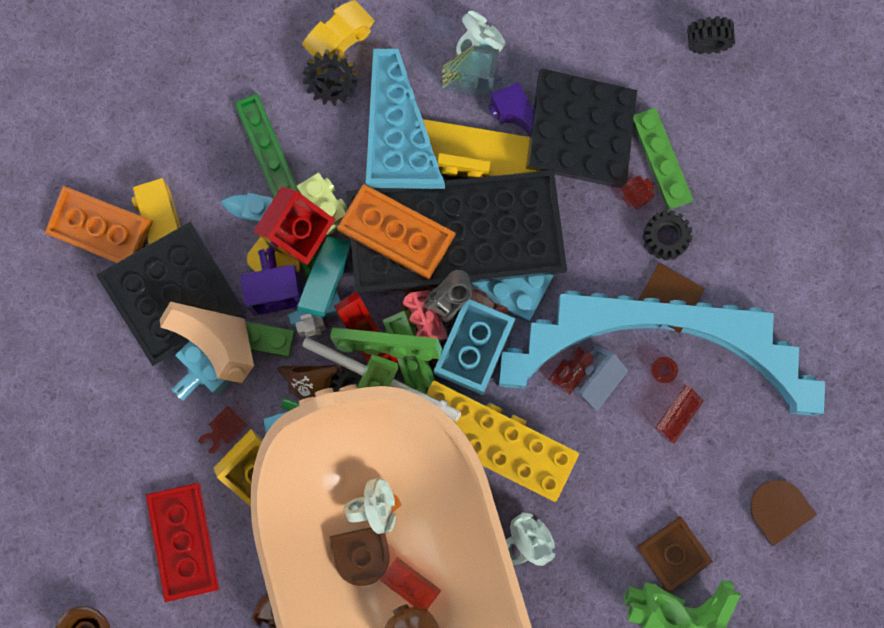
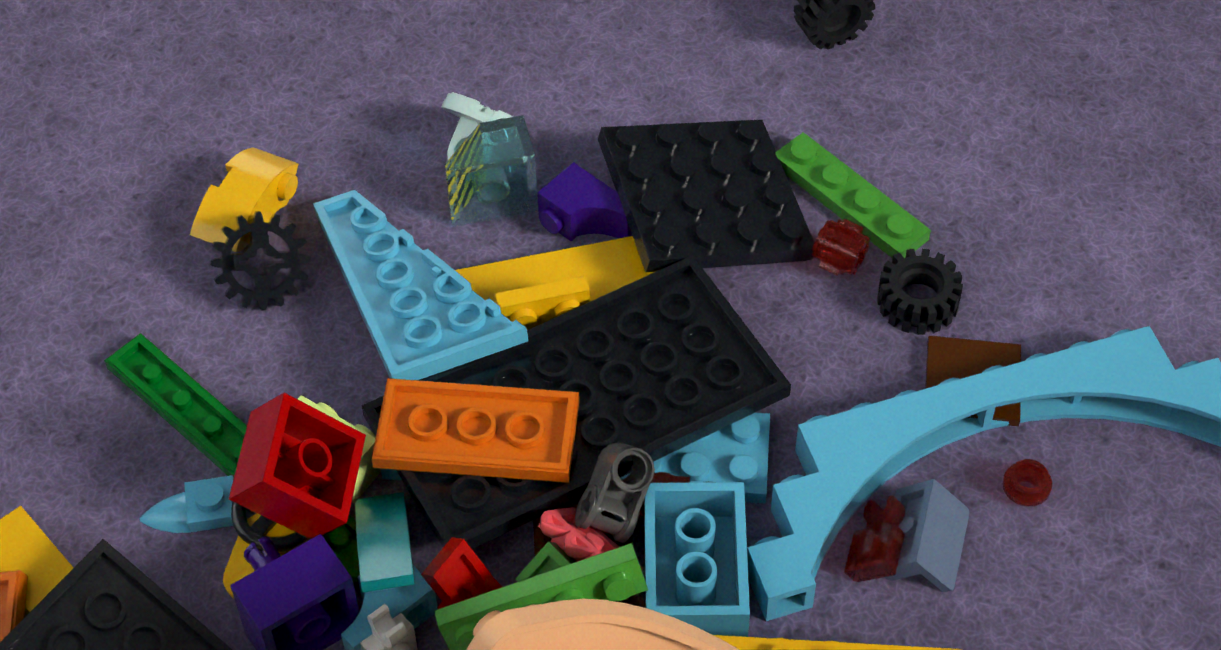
camera: 25 degrees left, 25 degrees down
(679, 414) = (1091, 537): clear red plate -> none

